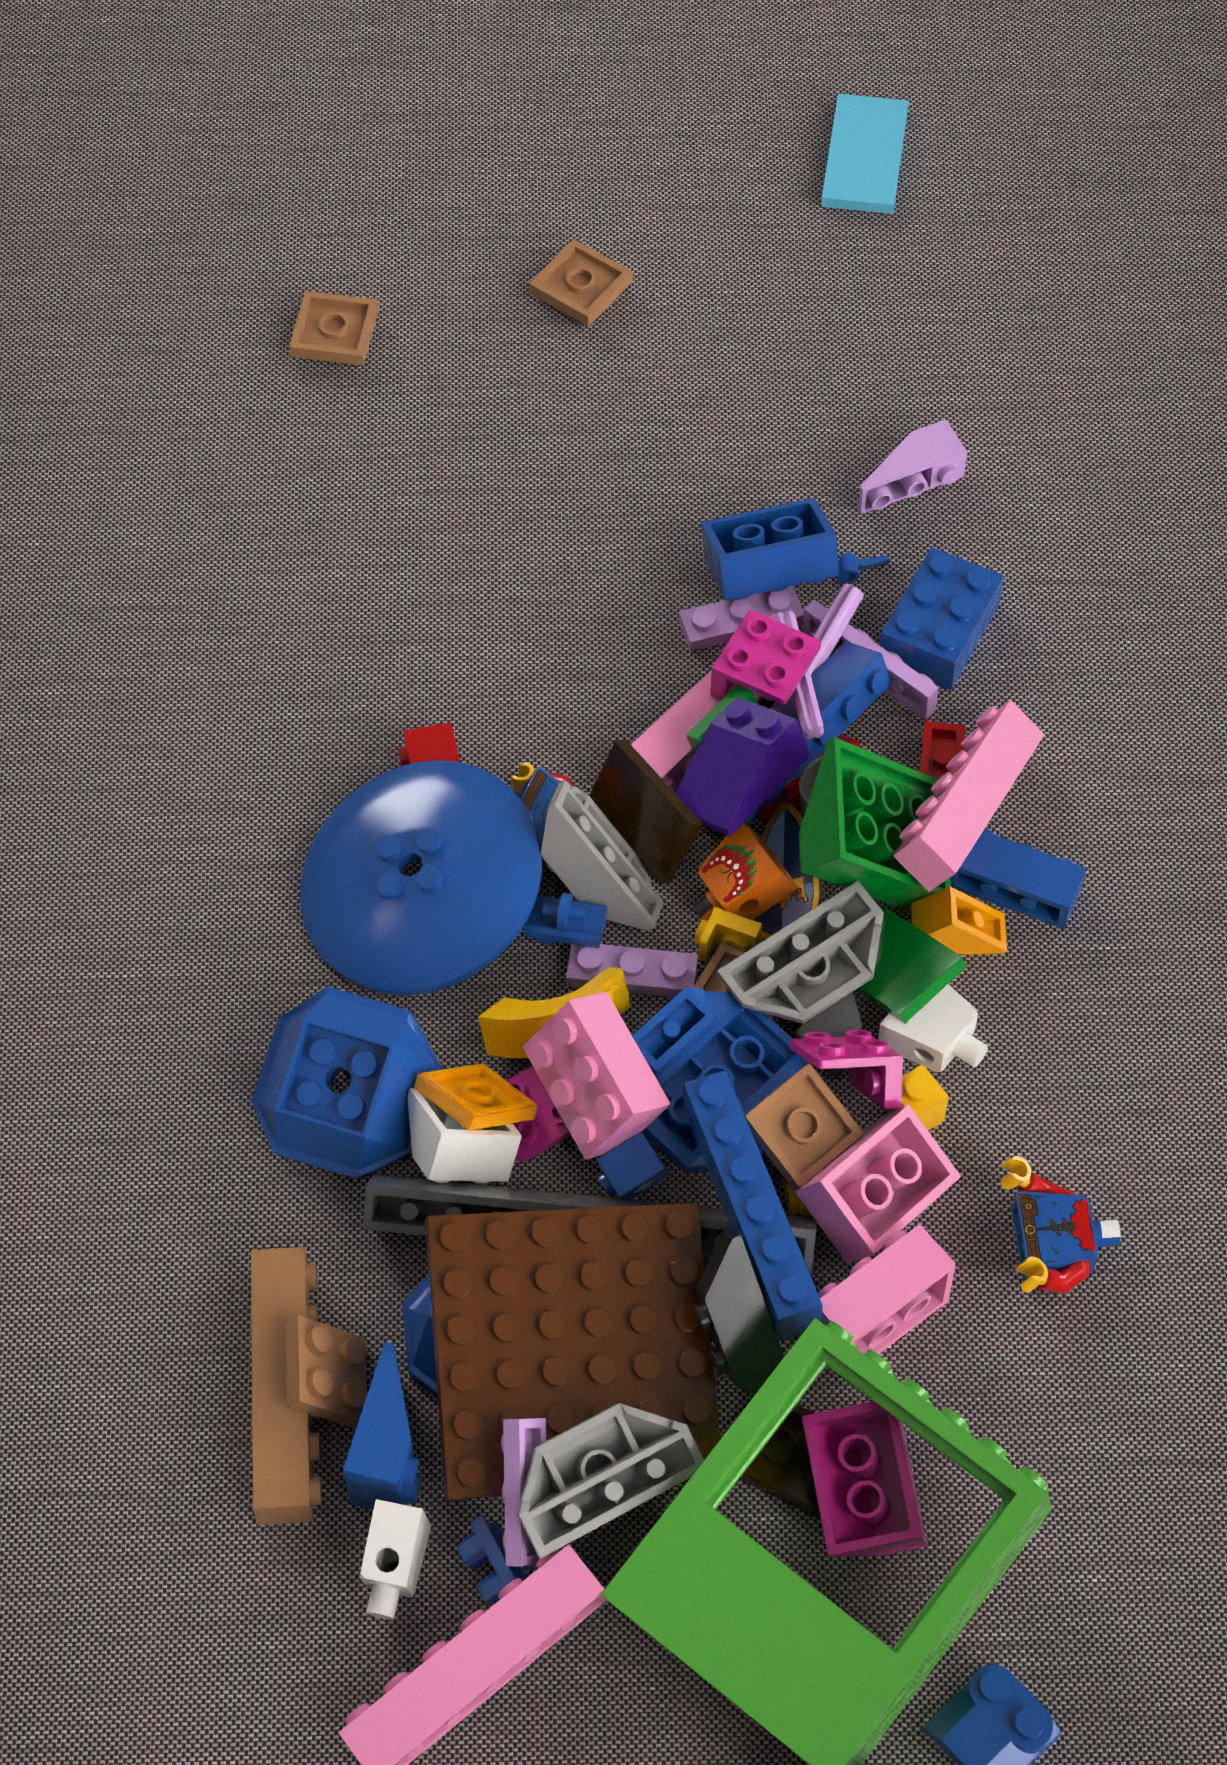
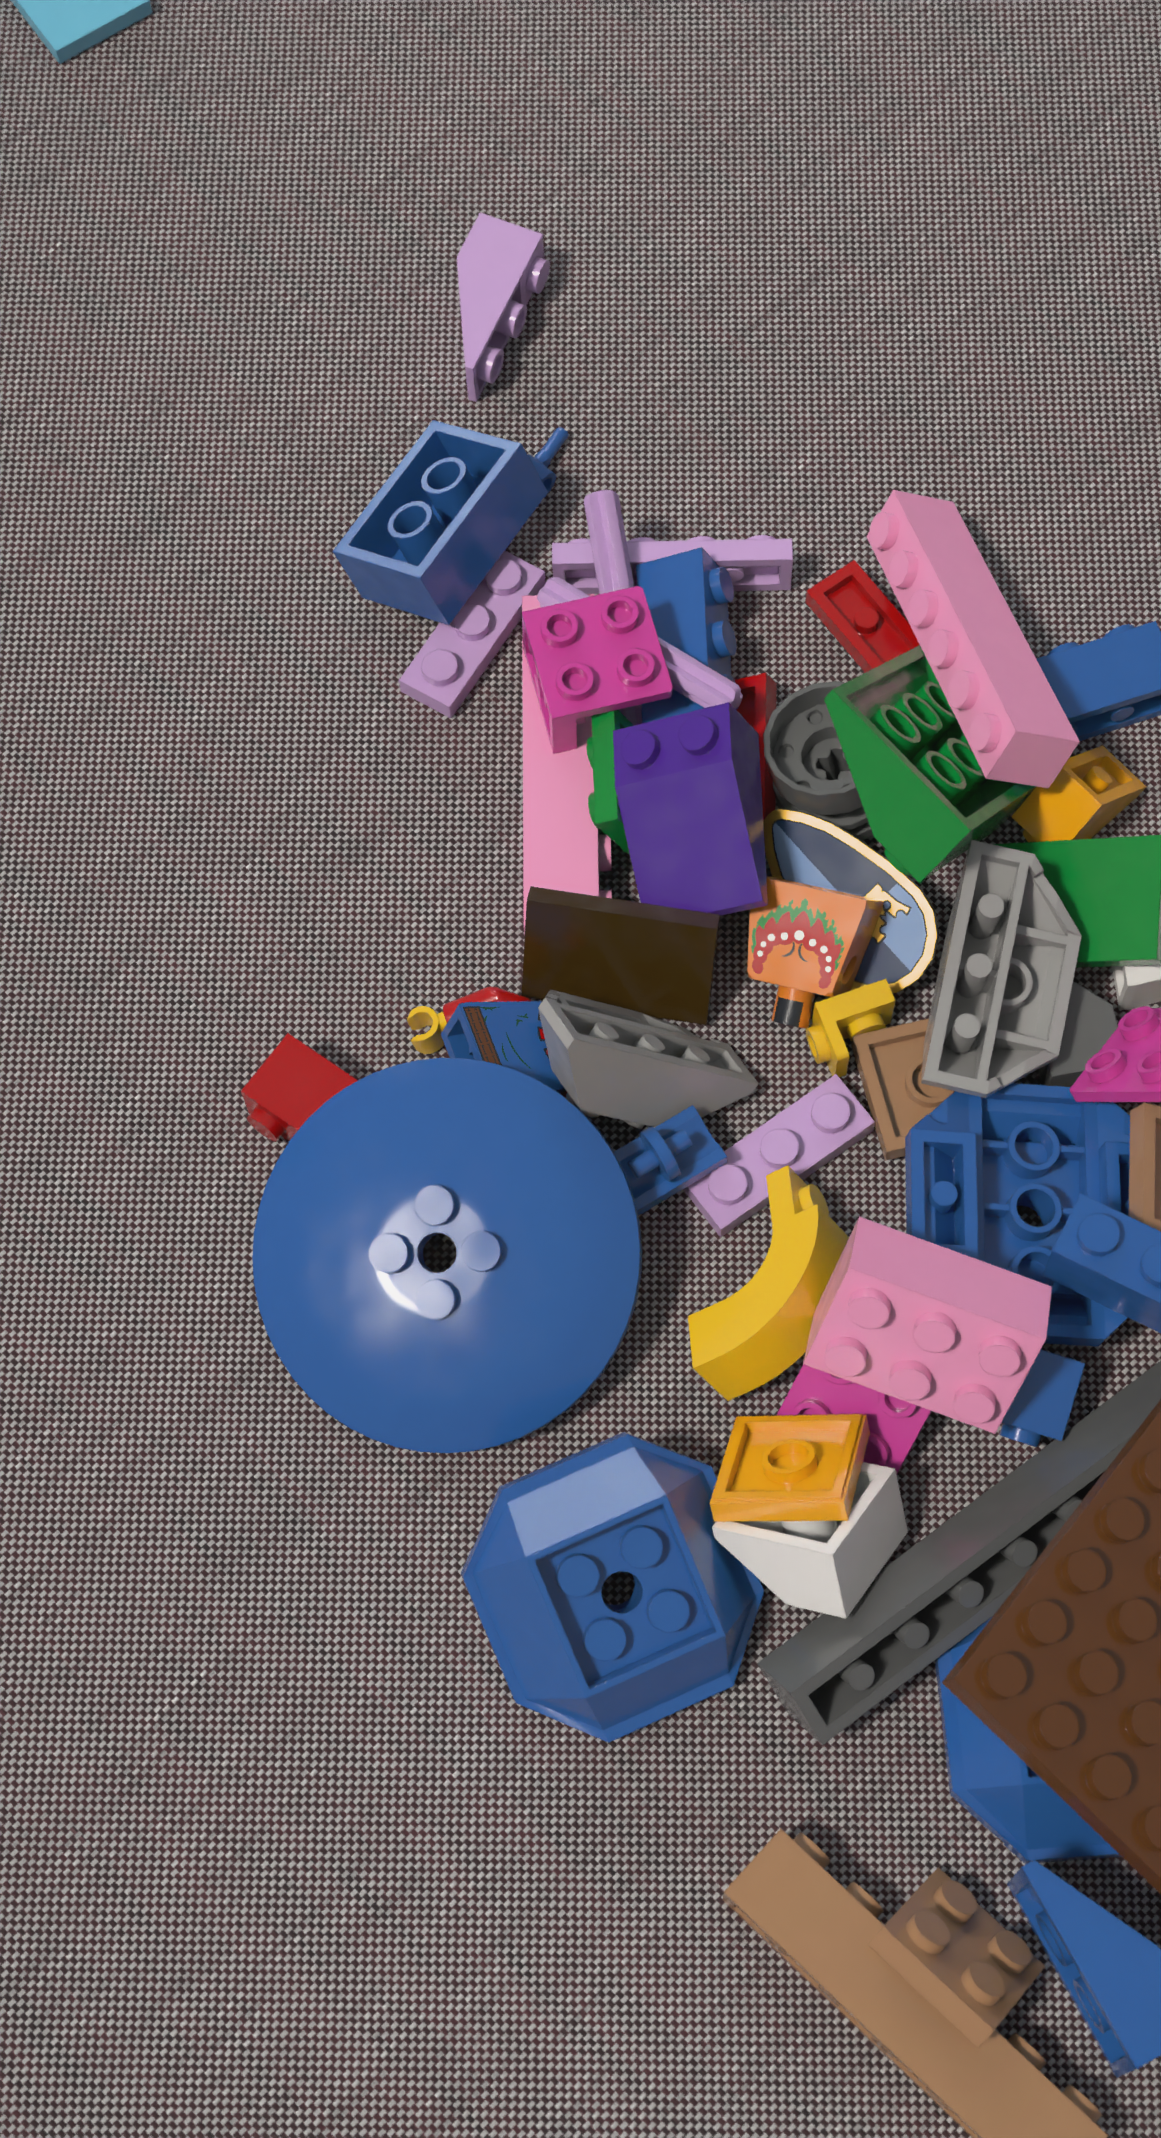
camera: 40 degrees left, 10 degrees up
(942, 616) = (703, 450): blue brick -> none

